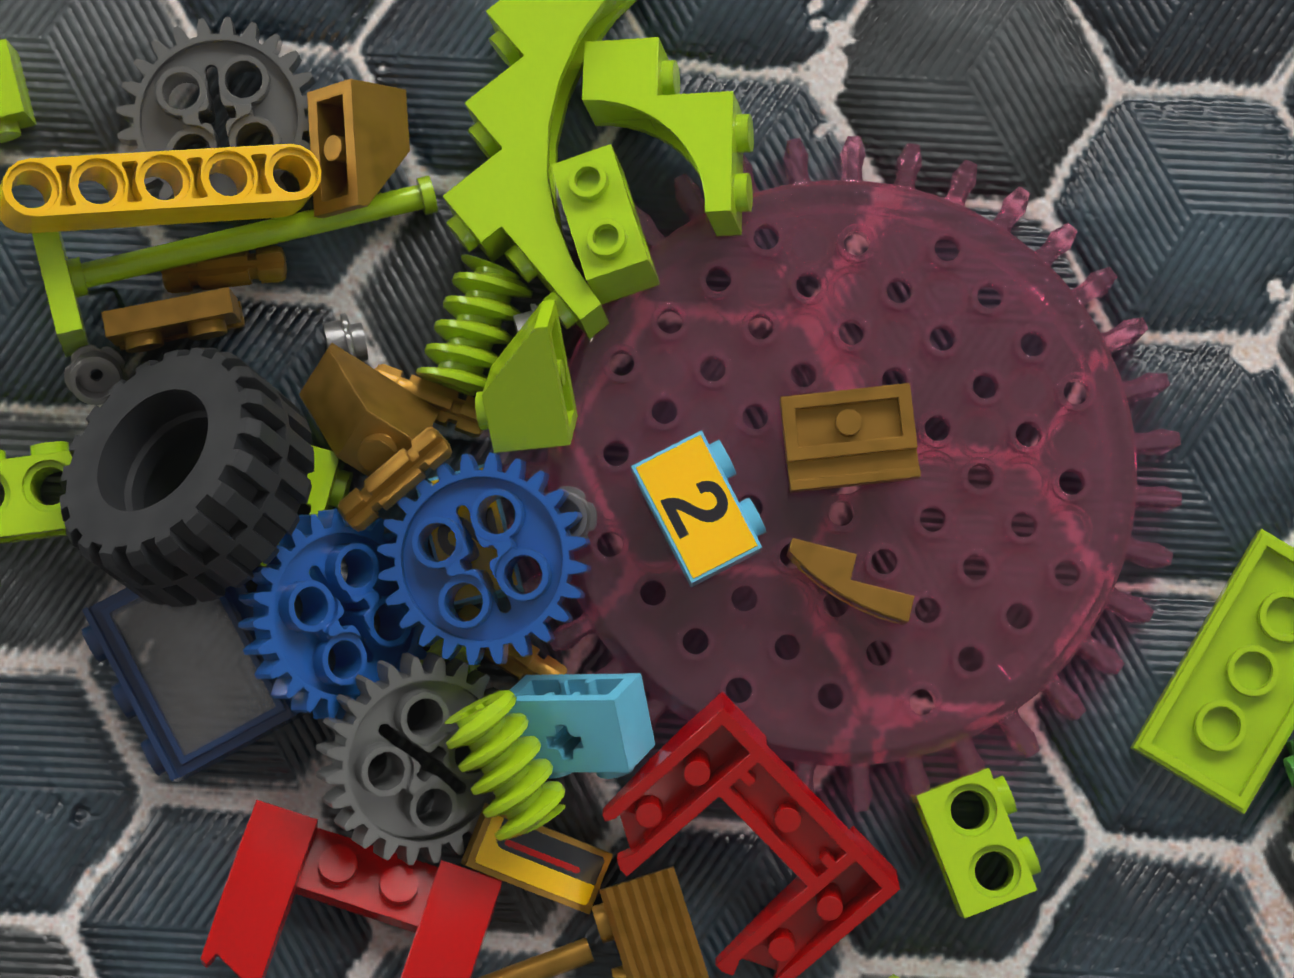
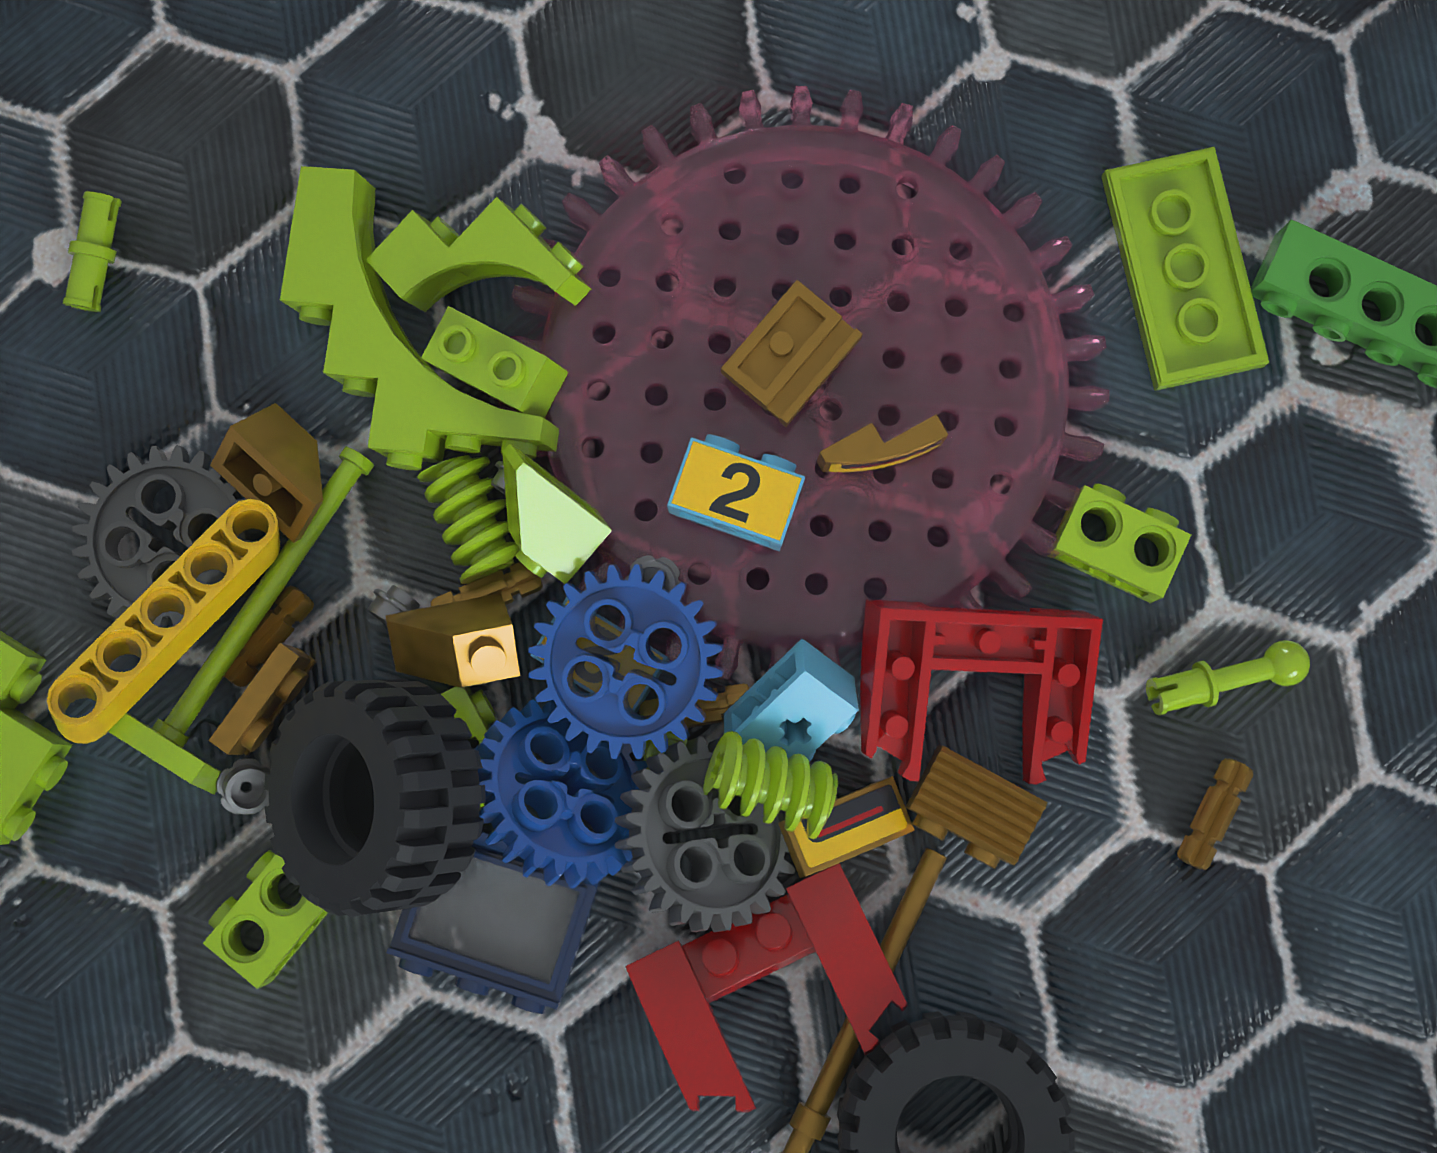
camera: 45 degrees left, 0 degrees up
(394, 479) = (515, 664): pearl gold axle -> none

